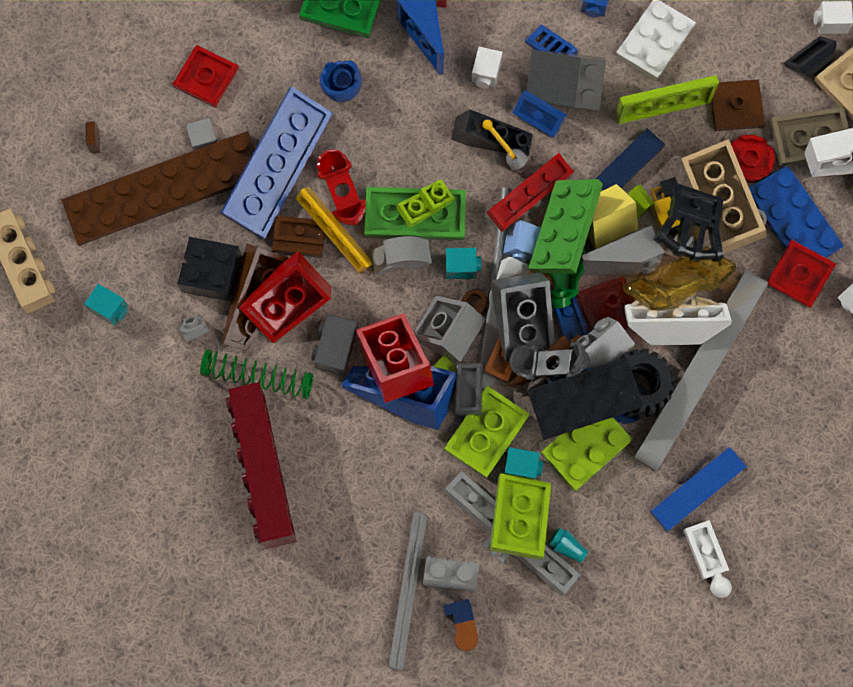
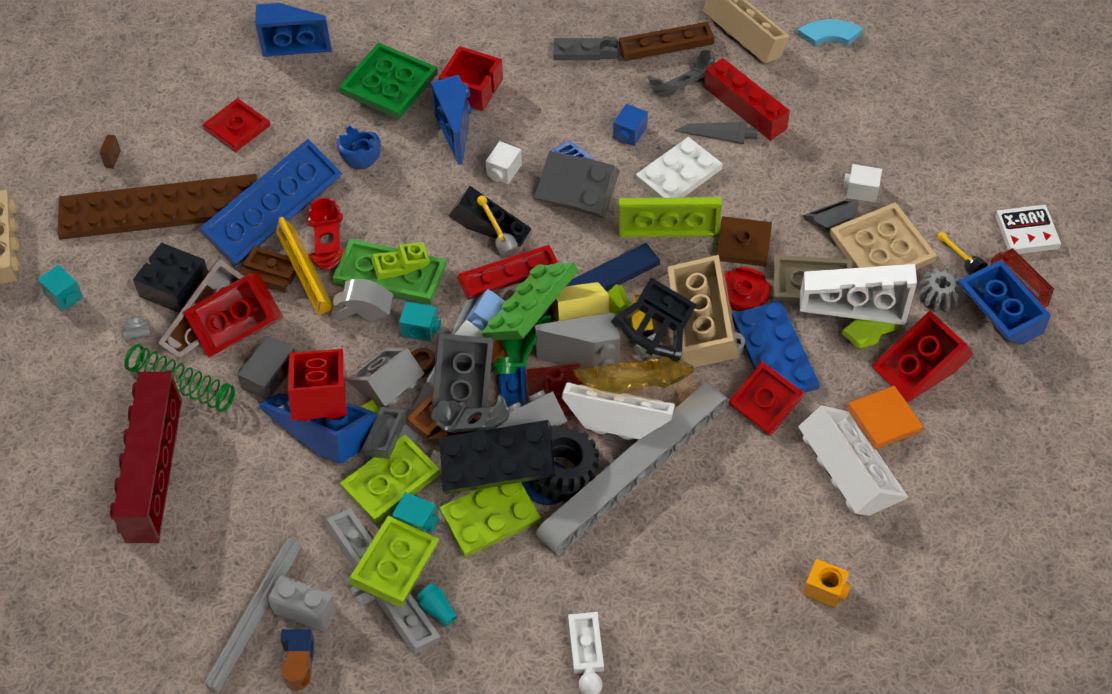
camera: 15 degrees right, 20 degrees down
(201, 133) = (212, 168): light grey tile -> none
(539, 113) = (542, 210): blue plate -> none
(698, 489) = (596, 582): blue tile -> none

